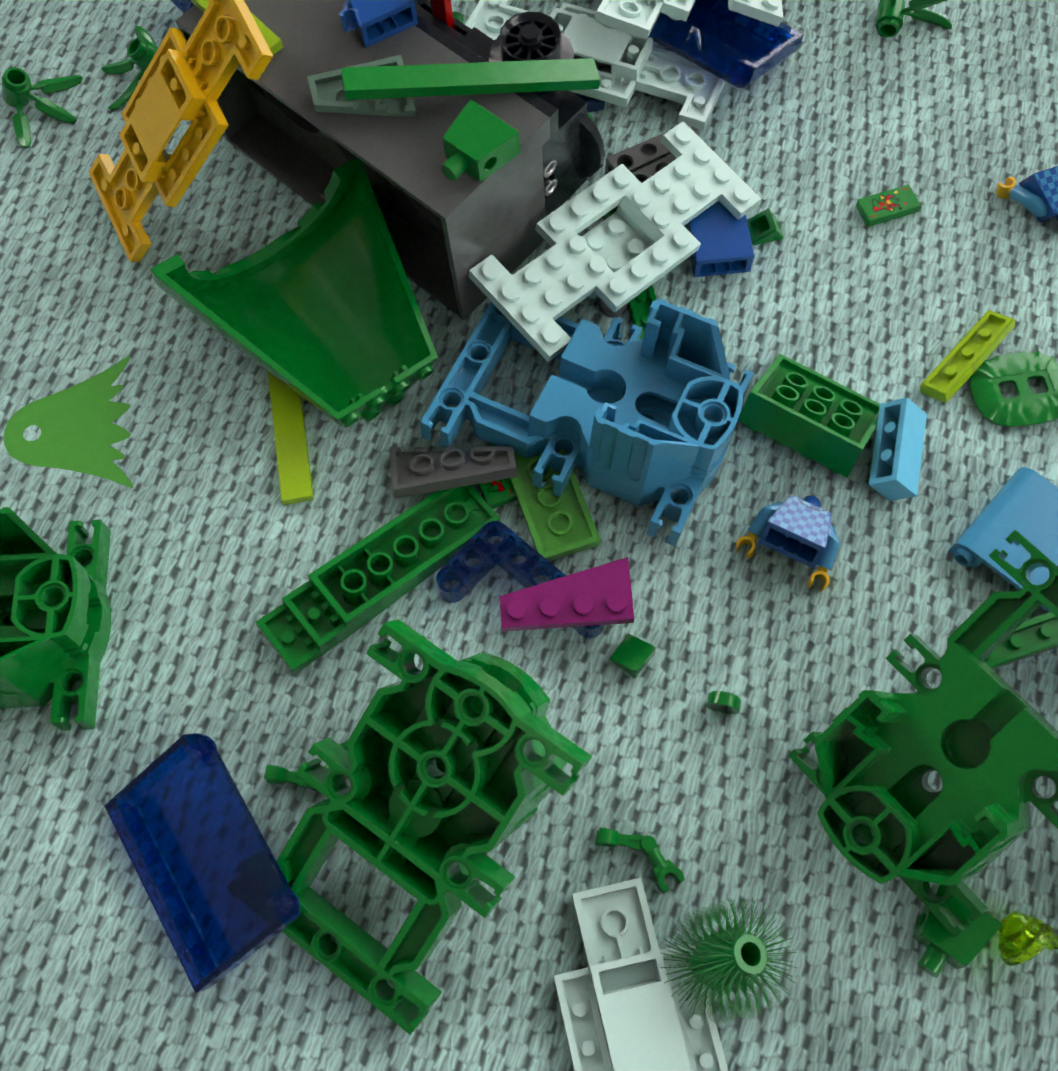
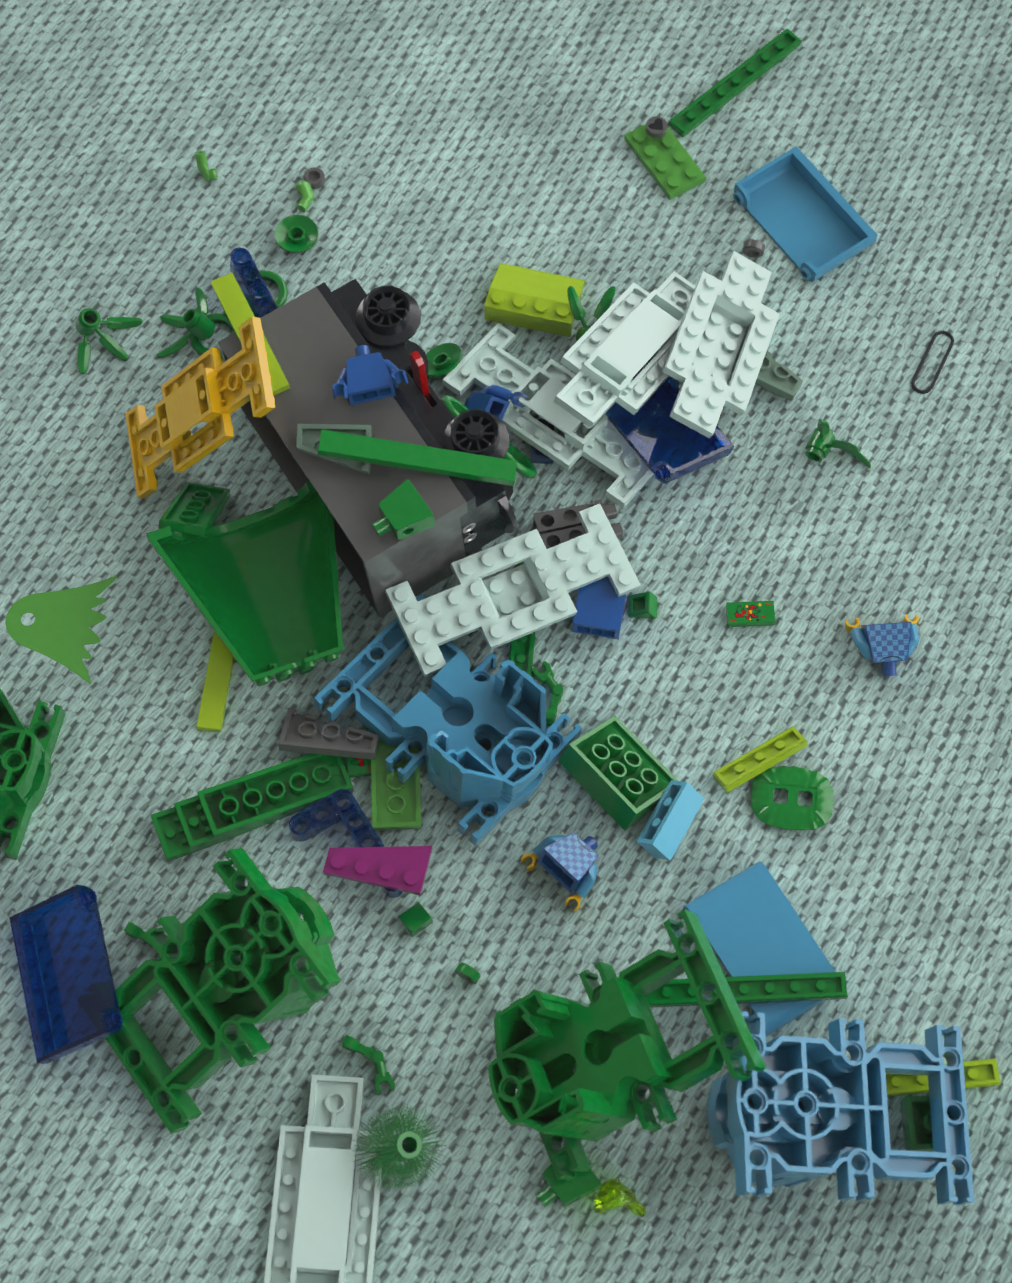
camera: 15 degrees right, 0 degrees up
(207, 247) = (195, 508): none -> green tile

